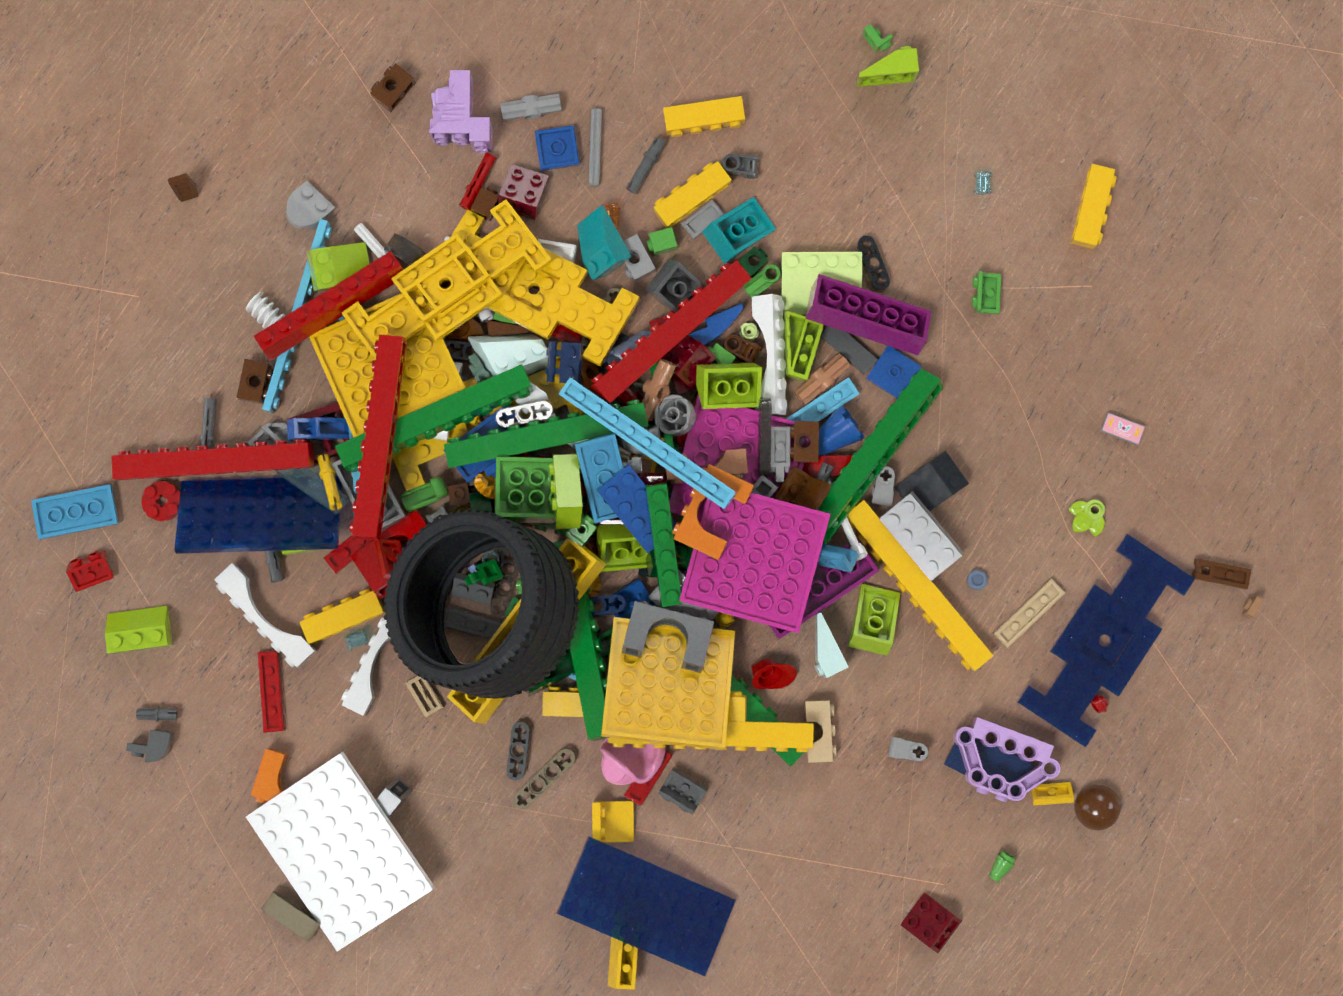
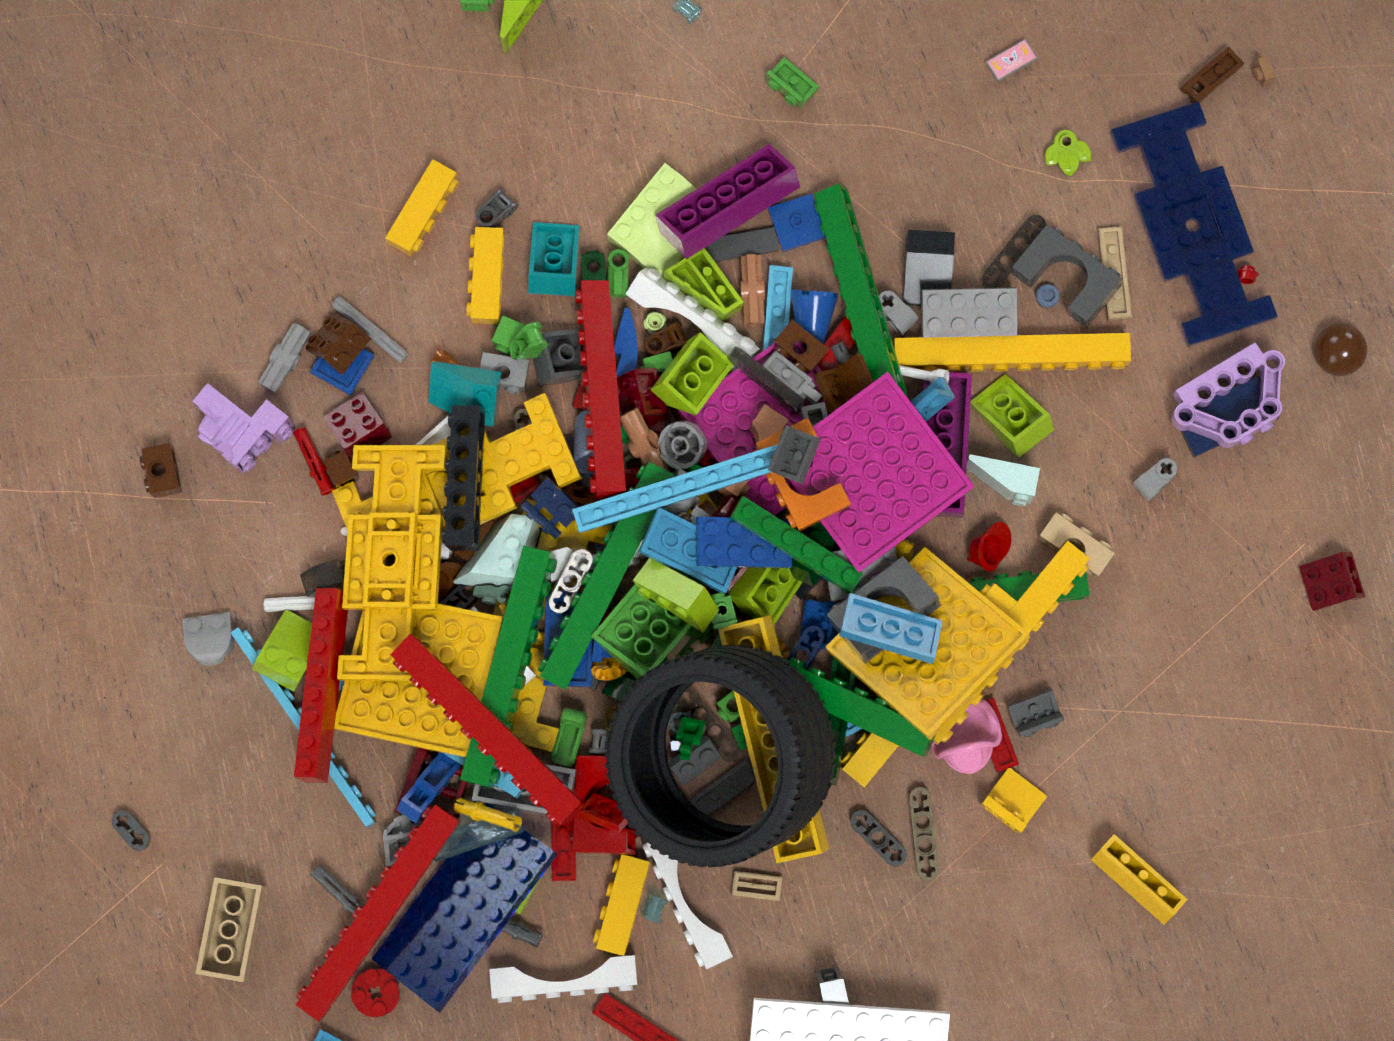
camera: 50 degrees left, 5 degrees down
(127, 375) = (230, 930): none -> tan brick
(148, 260) = (127, 834): none -> dark grey beam
(183, 187) = (95, 738): reddish brown slope -> none
(251, 370) = (320, 809): reddish brown brick -> none
(263, 311) = (275, 753): white piece -> none
(459, 494) = (595, 703): reddish brown bracket -> none
(535, 299) = (467, 537): none -> black brick
(567, 133) = (338, 342): none -> reddish brown bracket
(645, 166) = (422, 290): dark grey pin -> none
(646, 906) = (1117, 828): clear blue plate -> none
(655, 652) = (891, 628): none -> dark azure plate
(665, 258) = (528, 342): none -> bright green piece
(701, 219) = (516, 284): light grey tile -> none
(717, 496) = (794, 454): none -> dark grey bracket
(883, 275) = (700, 162): black beam -> none
(989, 534) = (1011, 250): none -> clear smoke beam
(1002, 865) = (1328, 475): bright green cone -> none
(1012, 557) = (1052, 248): none -> dark grey arch
(1052, 794) = (1297, 379): yellow plate -> none

